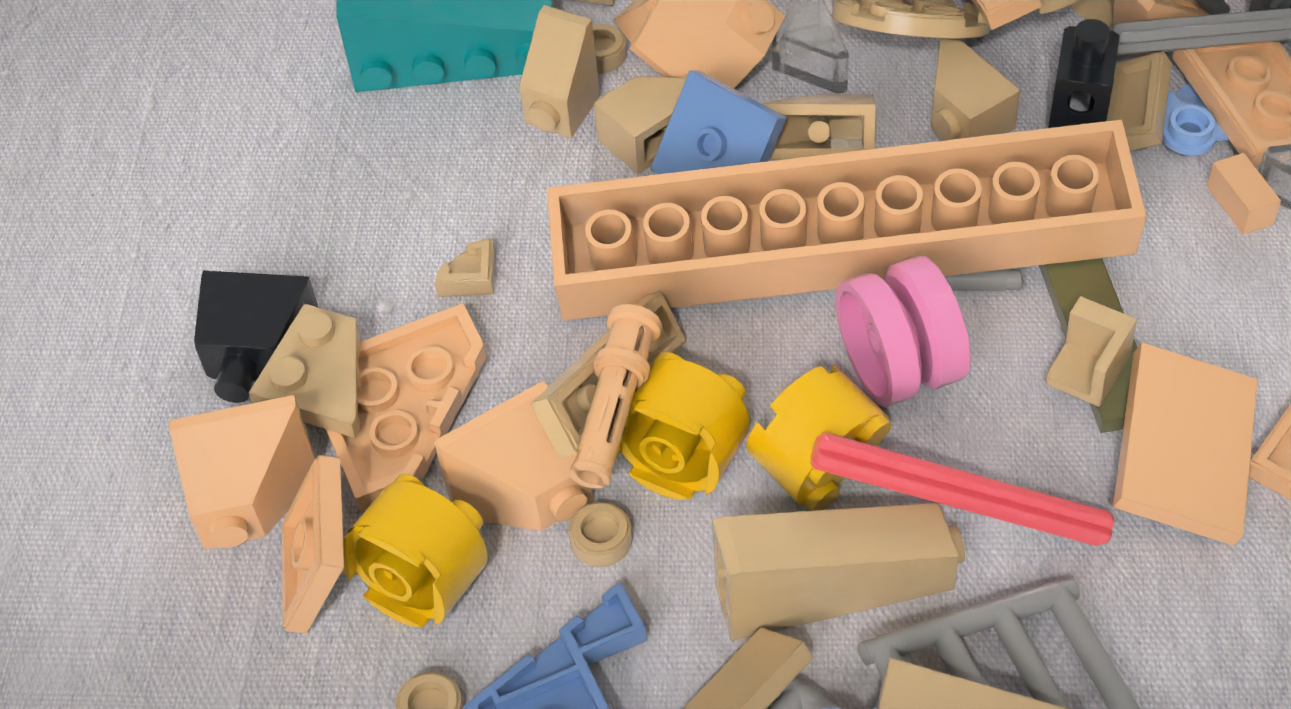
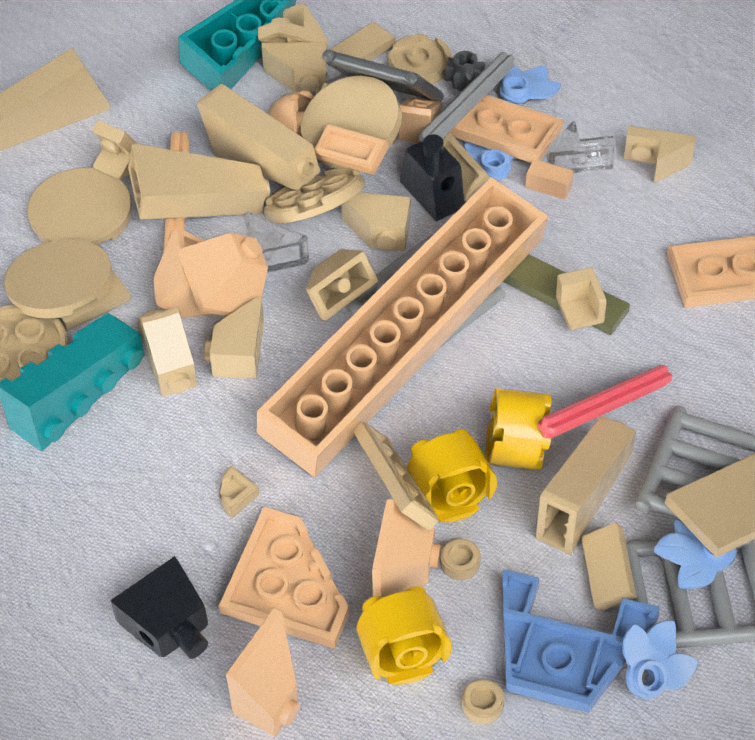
camera: 50 degrees left, 0 degrees up
(312, 544) = (352, 675): light nougat plate -> none
(319, 368) = (237, 598): tan wing -> none
(619, 372) = (415, 466): light nougat pin -> none
(716, 128) = (294, 326): medium blue plate -> none
(903, 330) = (496, 349): bright pink wheel -> none
(1186, 444) = (657, 310): light nougat tile -> none

